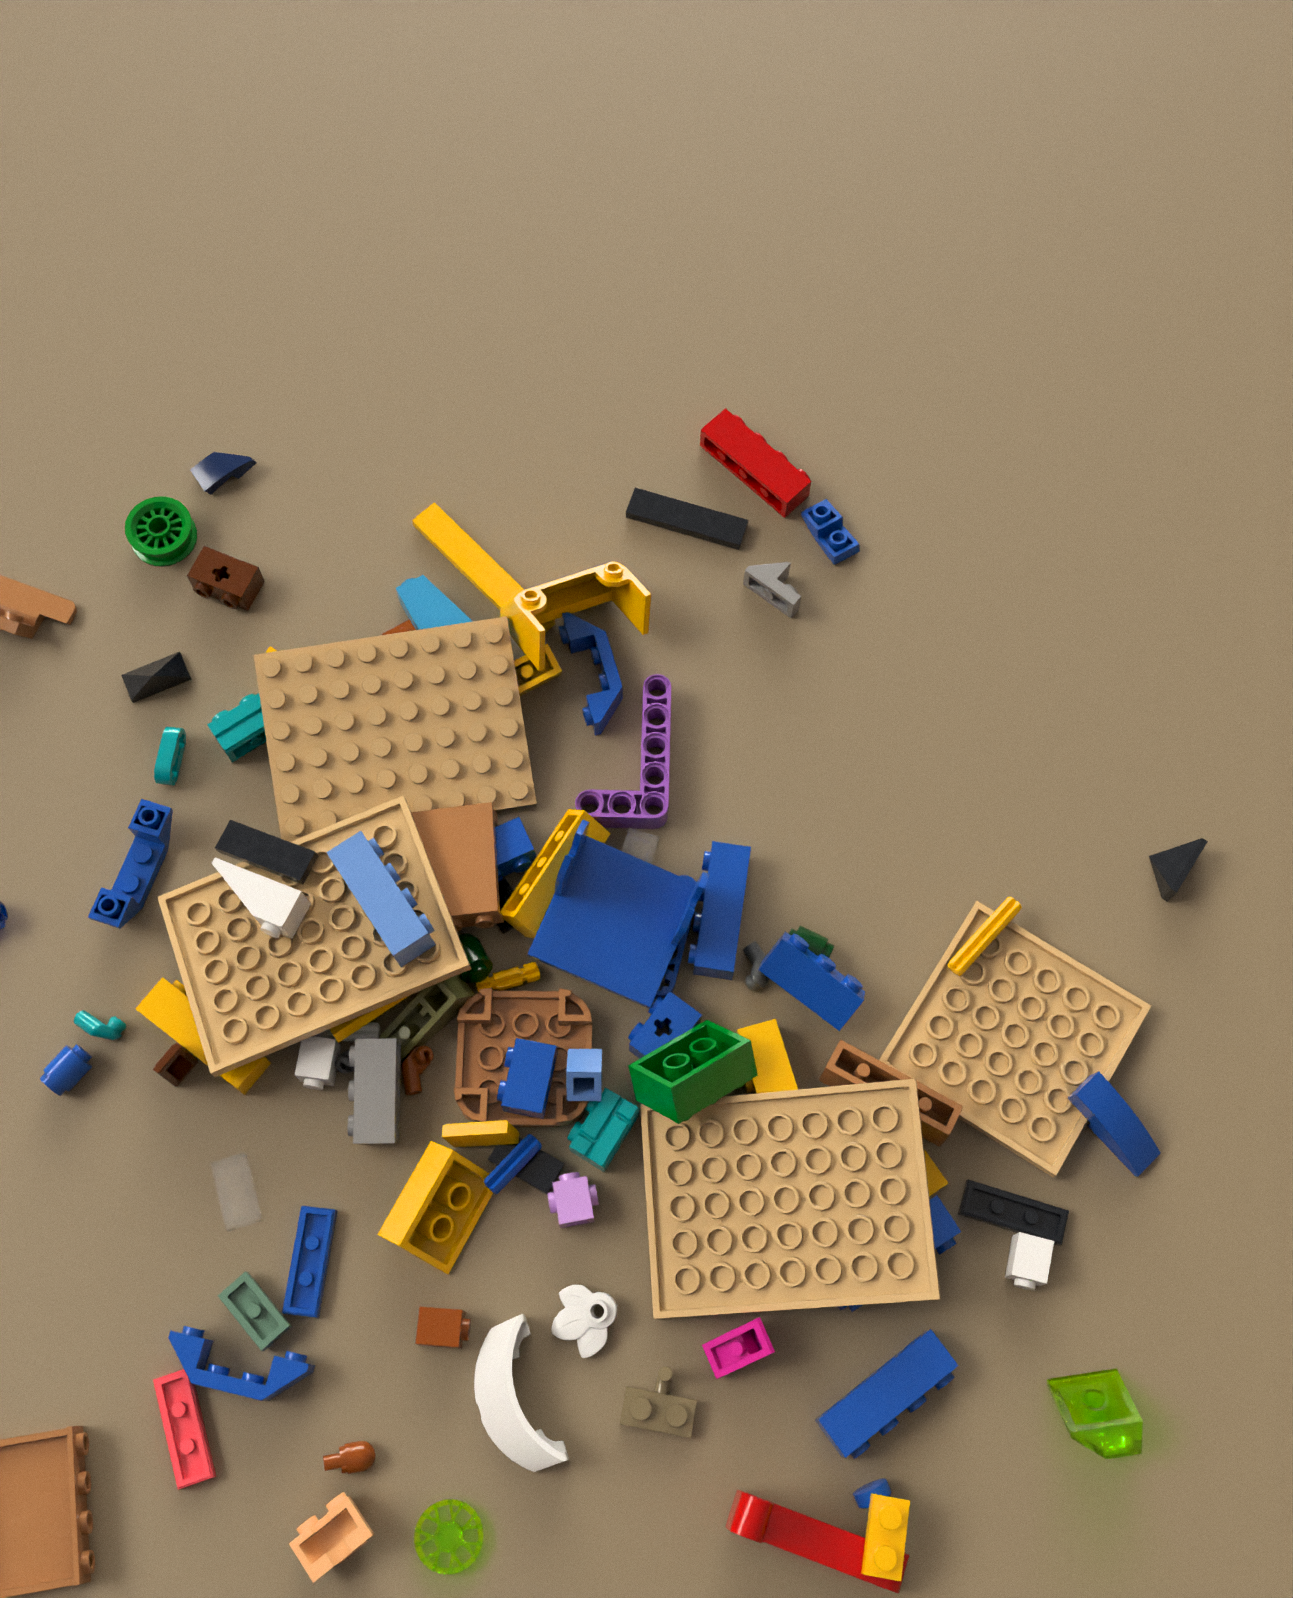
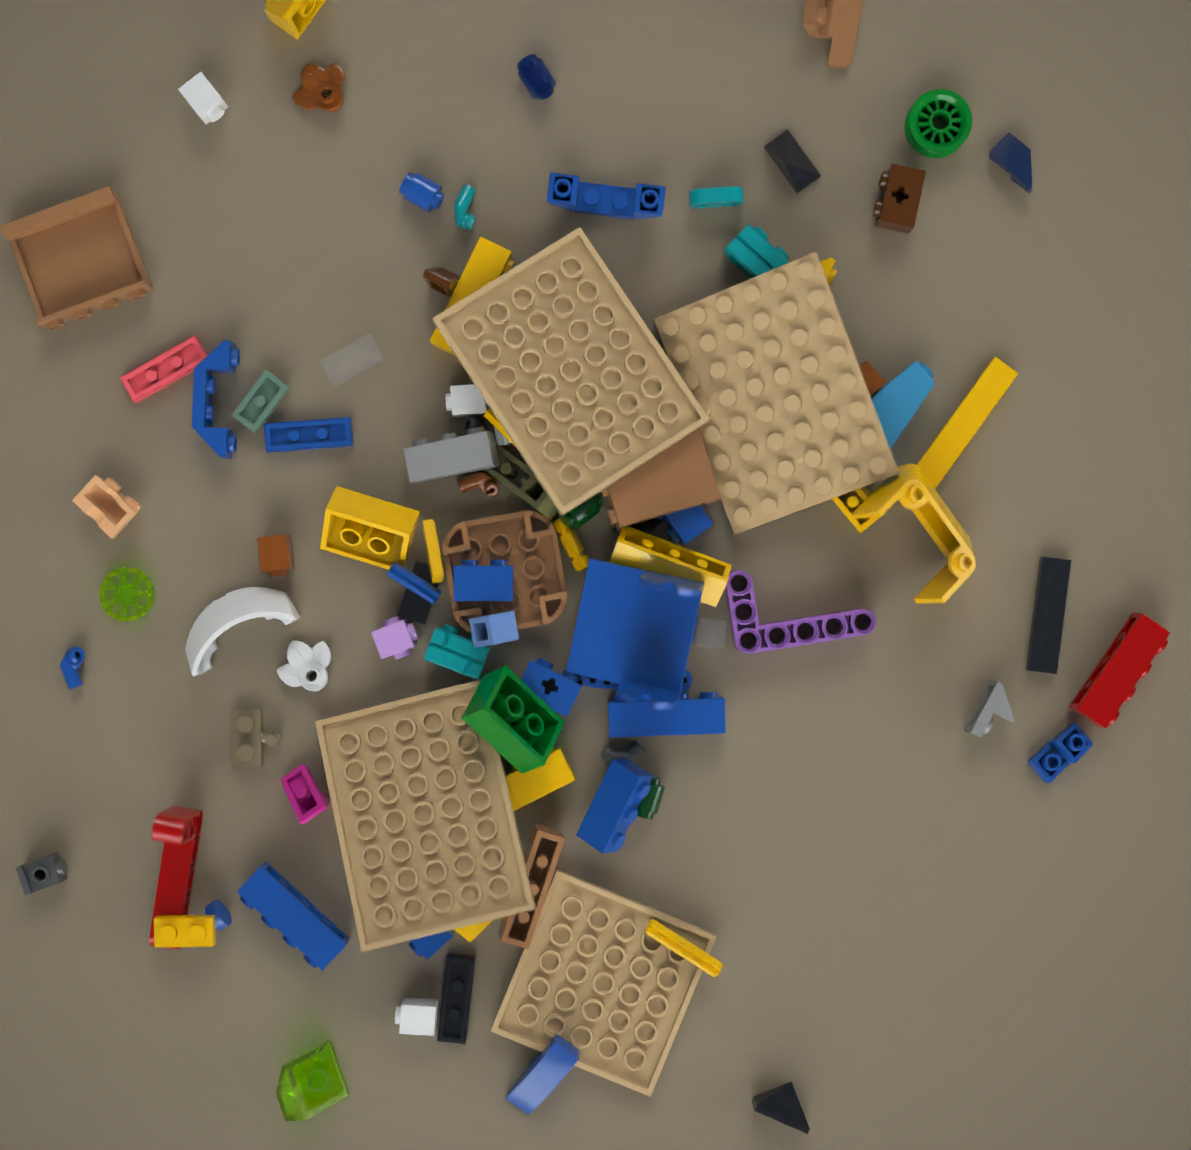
camera: 80 degrees right, 20 degrees up
(266, 852) = (634, 312): black tile -> none
(270, 902) = (586, 325): white slope -> none
(352, 1458) = (167, 506): dark orange cylinder -> none
(381, 898) = (606, 425): medium blue brick -> none
(584, 636) = (905, 541): blue slope -> none

